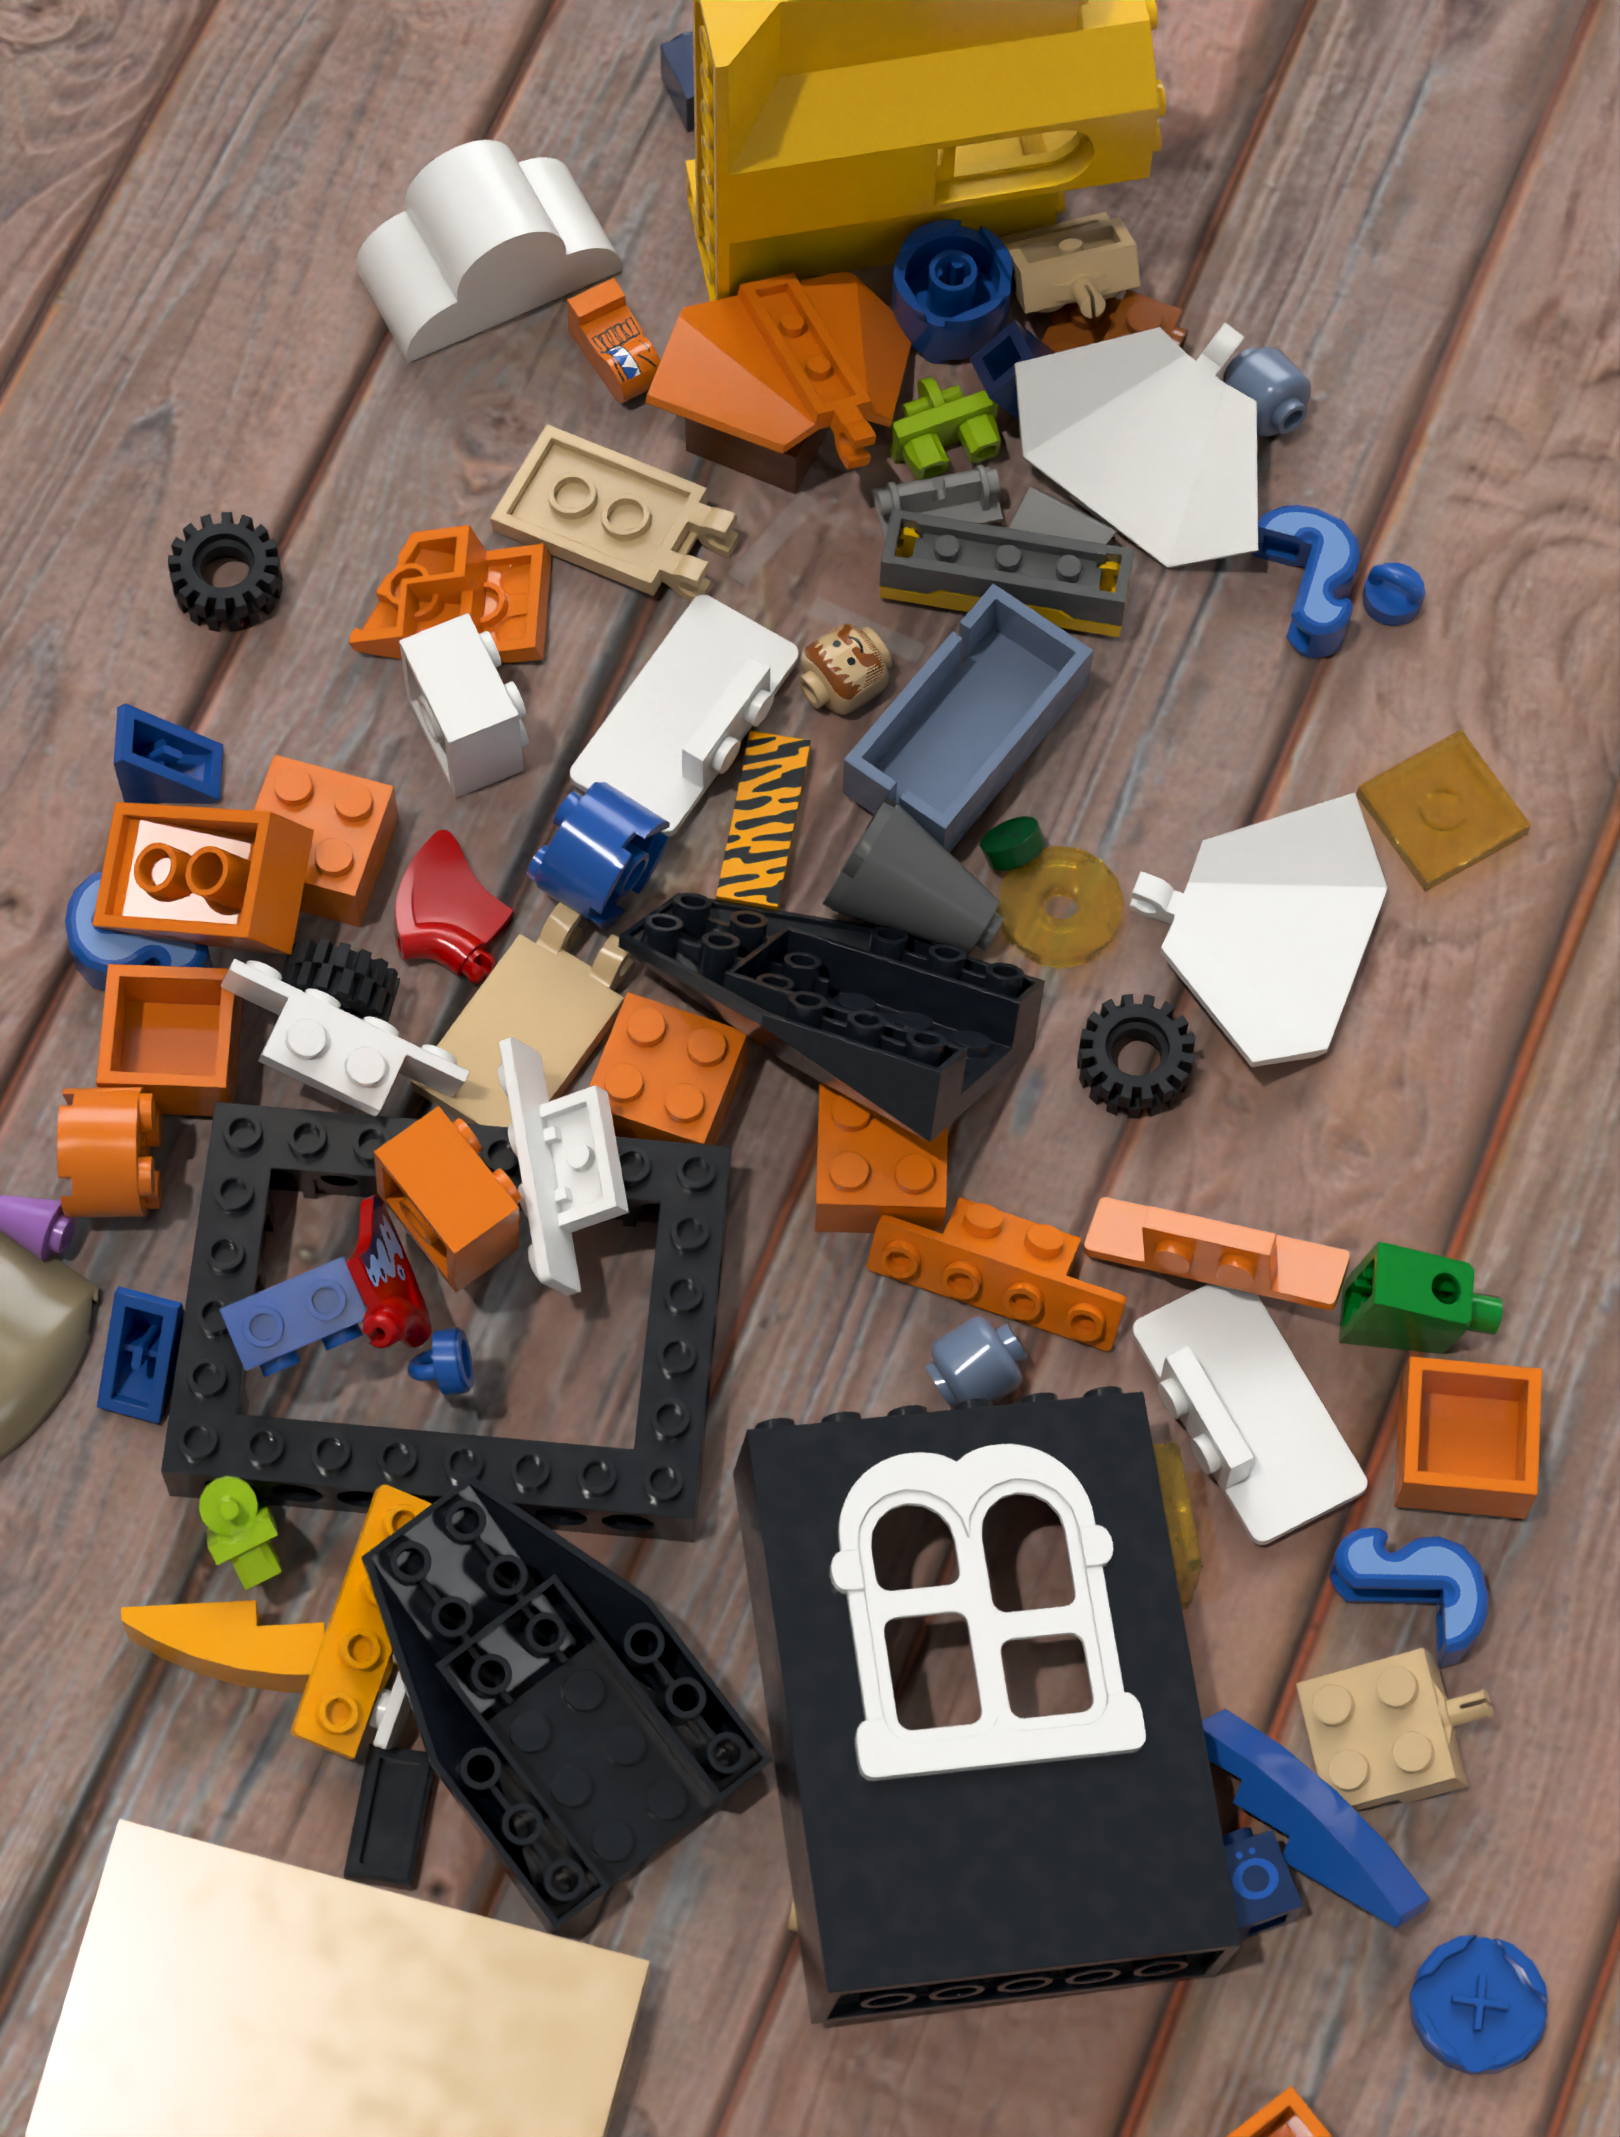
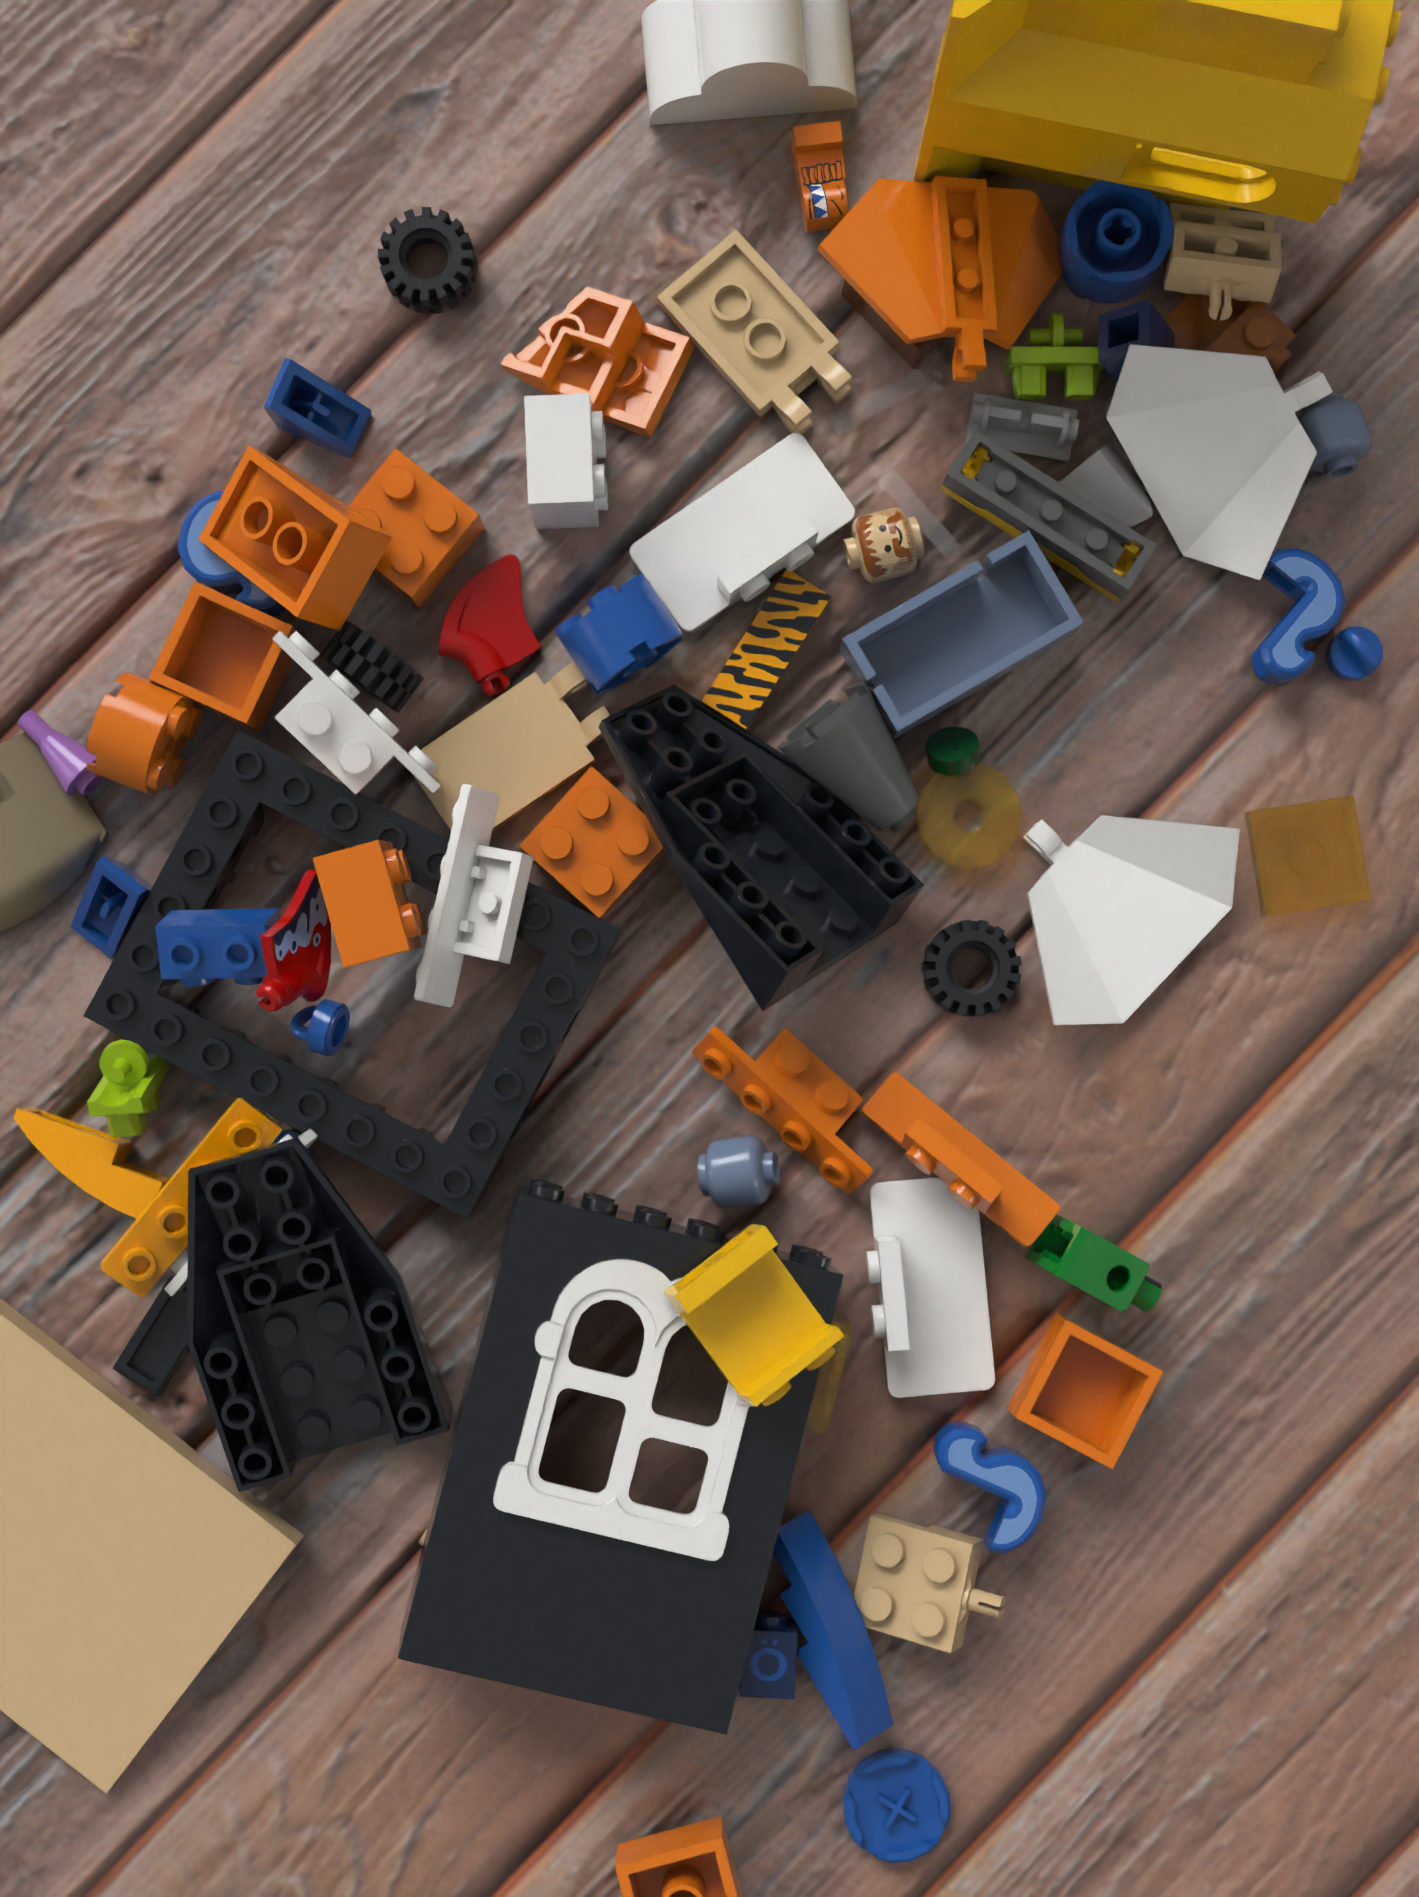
camera: 25 degrees right, 20 degrees up
(875, 1169) = (716, 993): orange piece -> none
(1060, 1459) = (753, 1317): none -> yellow panel

